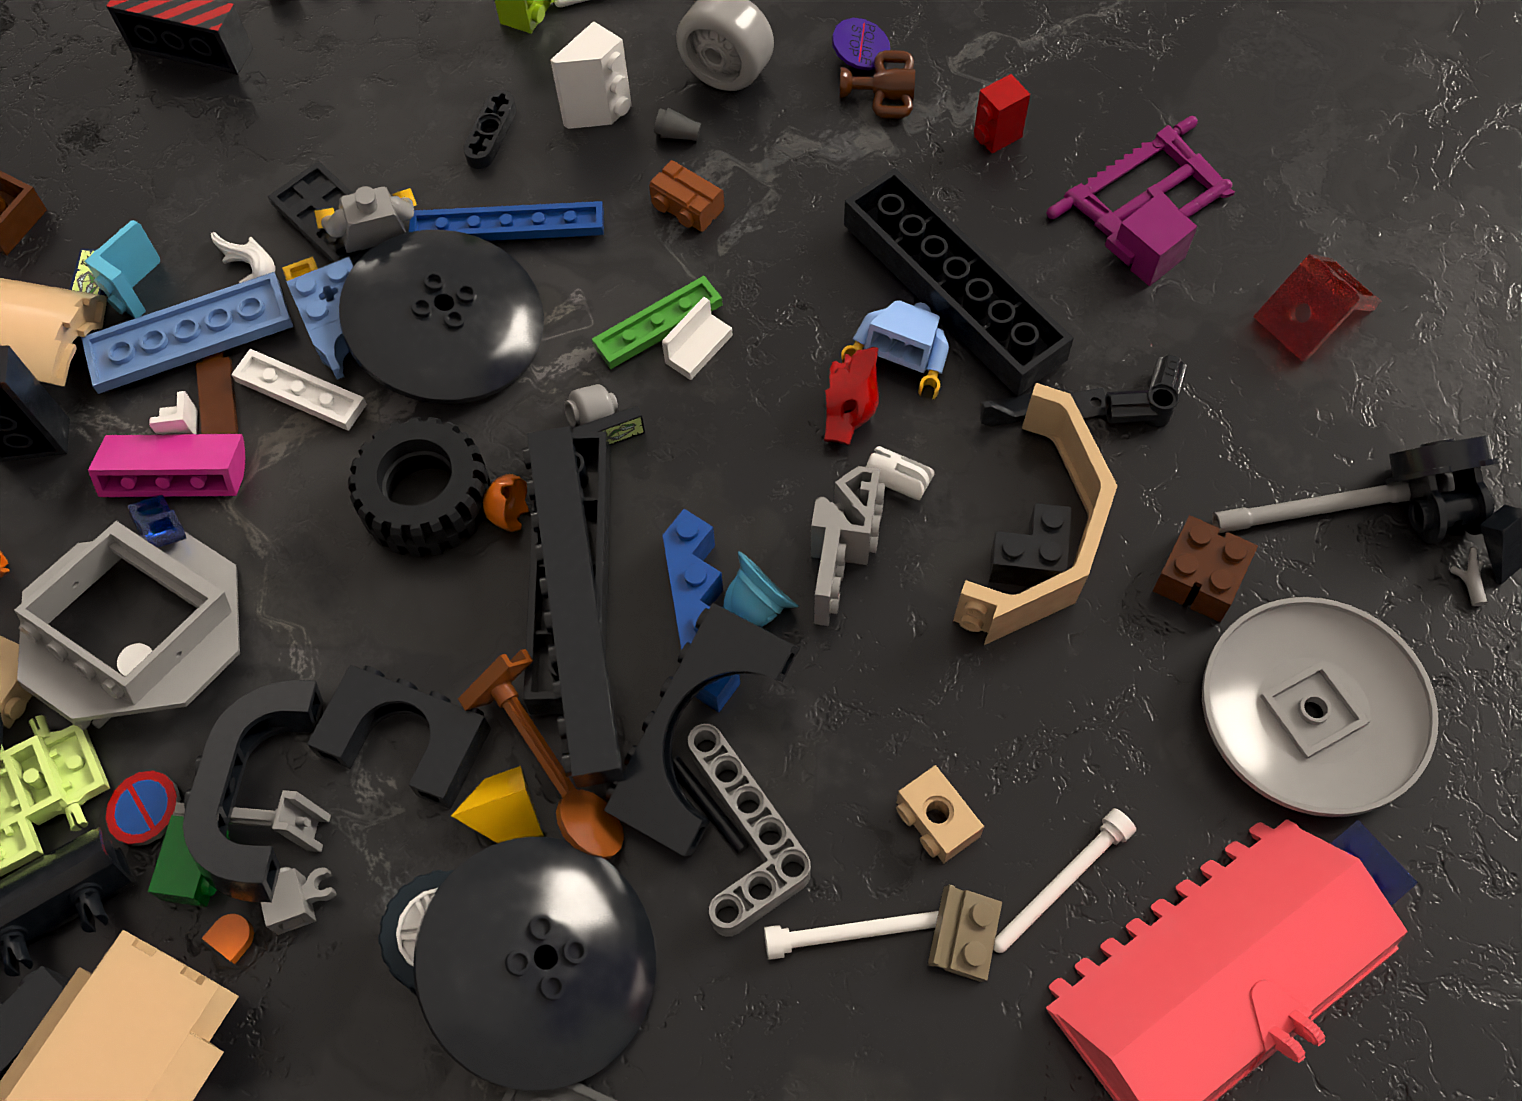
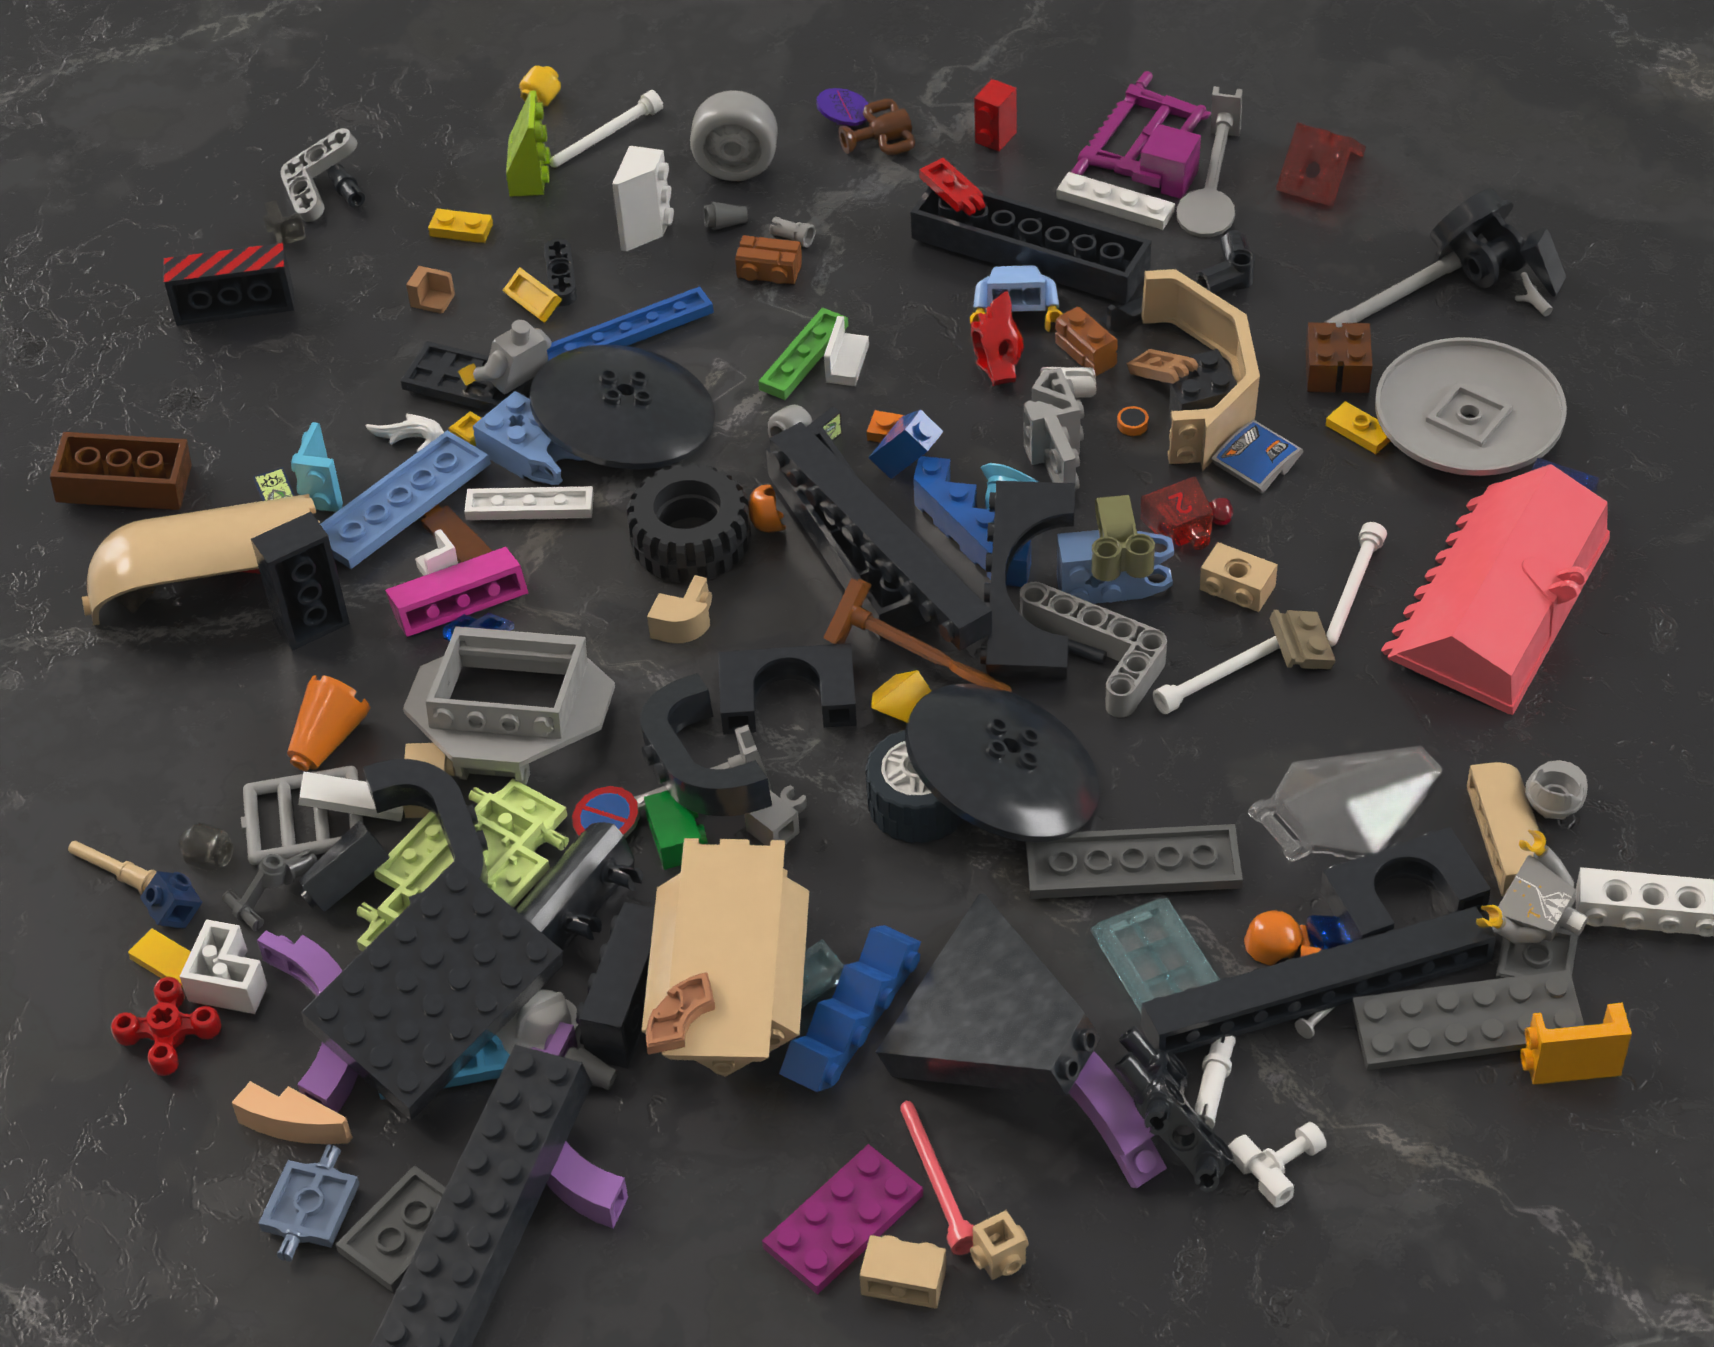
camera: 25 degrees left, 15 degrees down
(357, 599) = (684, 618): none -> tan brick
(358, 102) = (430, 289): none -> medium nougat panel
(433, 39) = (460, 225): none -> yellow plate
(446, 146) = (532, 295): none -> yellow tile
(684, 483) = (905, 443): none -> blue slope
(688, 446) = (880, 425): none -> orange plate
(735, 174) = (794, 231): none -> light grey pin
(802, 742) = (1076, 578): none -> medium blue brick
(807, 735) = (1119, 544): none -> olive piece
(899, 189) = (952, 186): none -> red hinge
(922, 700) = (1179, 513): none -> clear red torso
(942, 549) = (1132, 421): none -> tile
(944, 430) = (1086, 340): none -> dark orange brick
(968, 715) = (1222, 511): none -> dark red hinge
(1003, 500) = (1162, 366): none -> medium nougat hinge
(1049, 656) = (1256, 455): none -> slope
(1076, 262) = (1115, 200): none -> white plate
(1166, 313) = (1208, 210): none -> light grey piece
(1180, 666) = (1358, 427): none -> yellow plate

